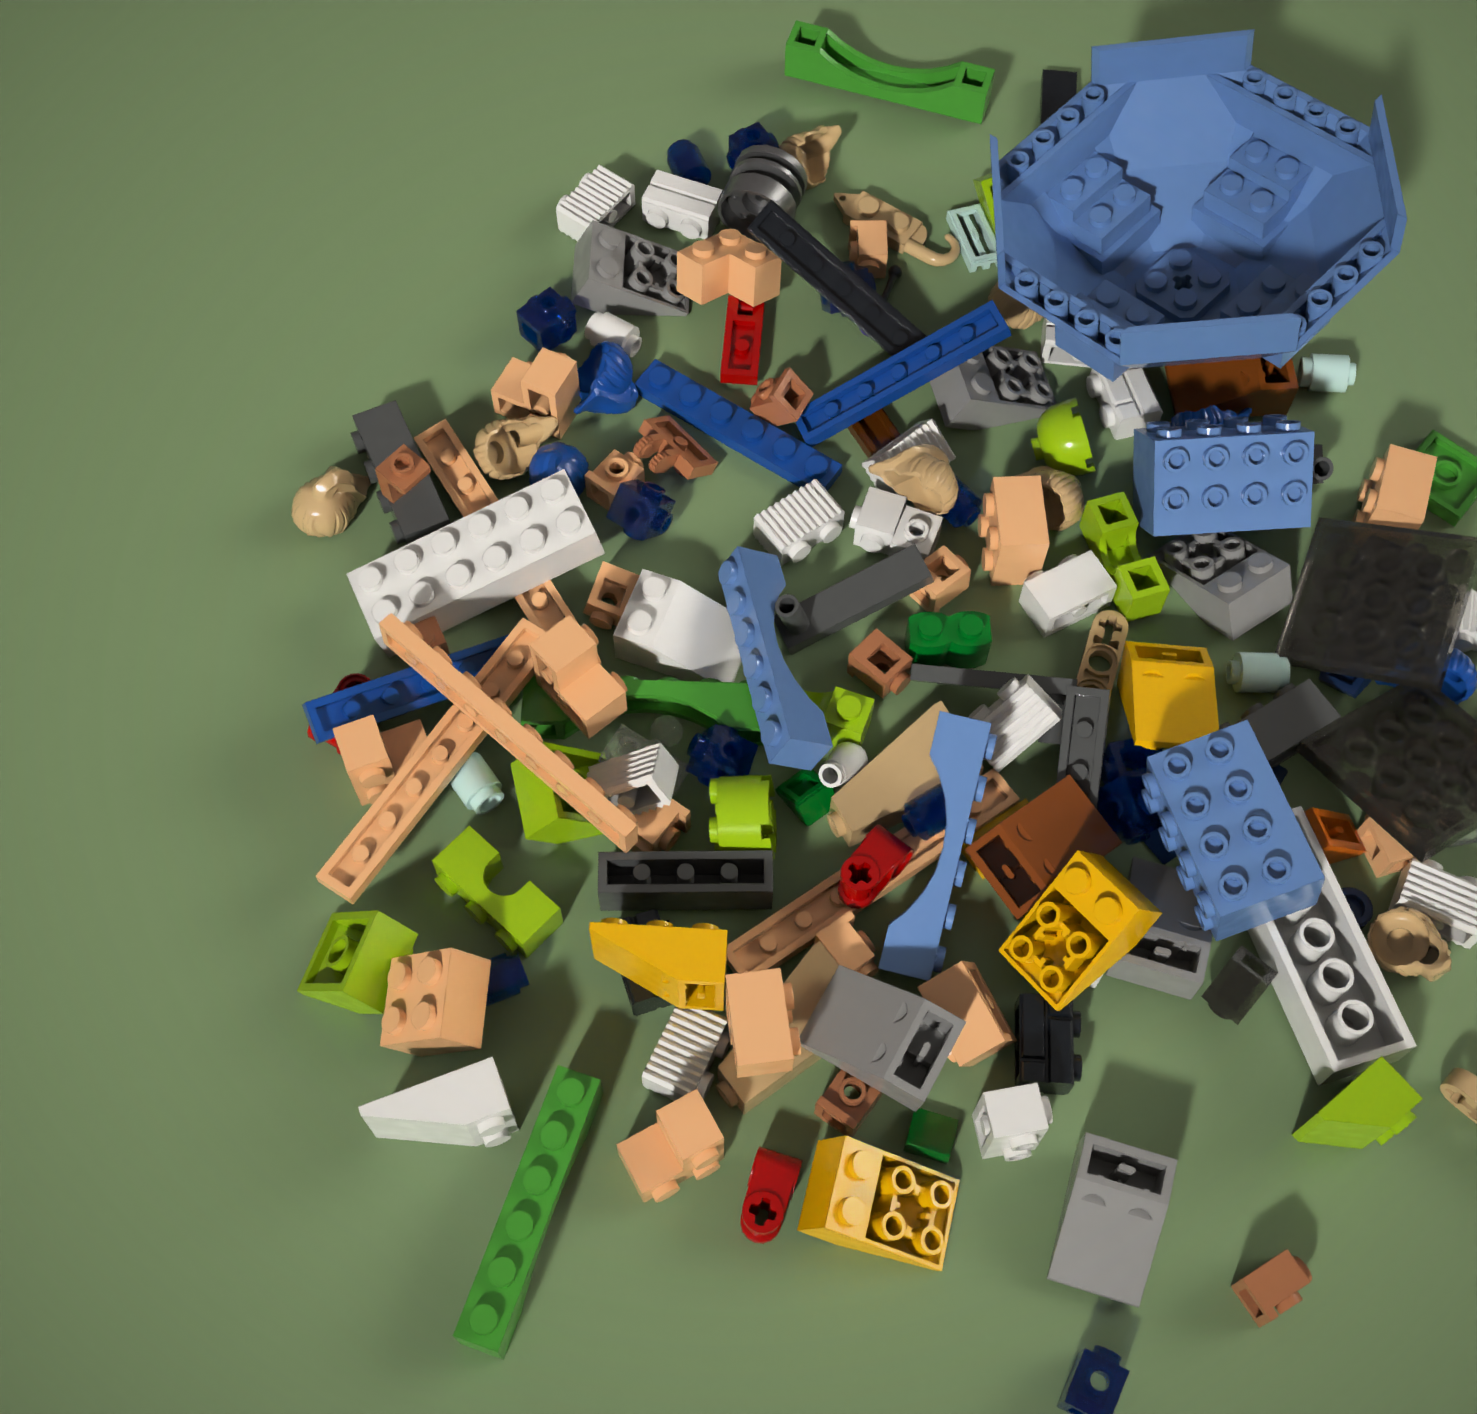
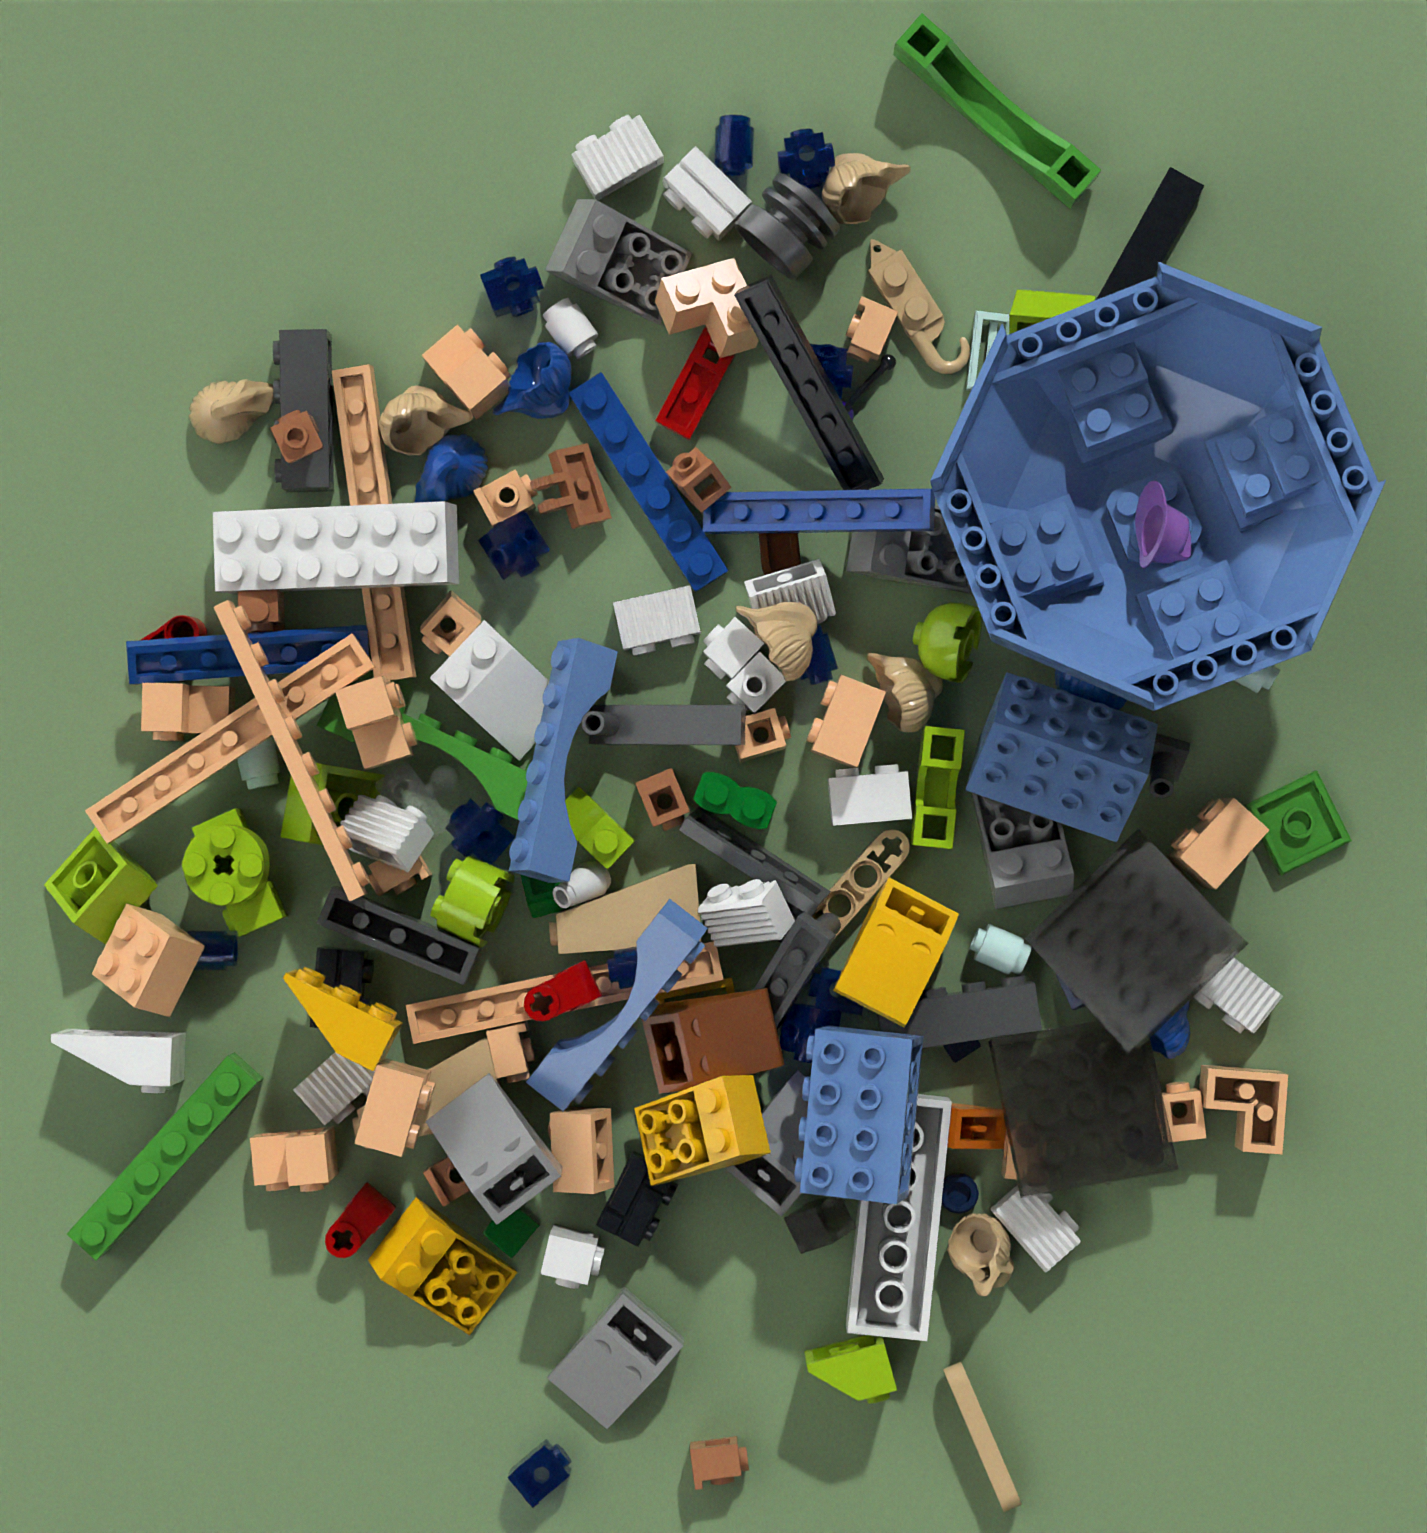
camera: 30 degrees right, 25 degrees up
(476, 846) = (203, 864): none -> lime brick
(1198, 263) = (1160, 529): none -> medium lavender piece

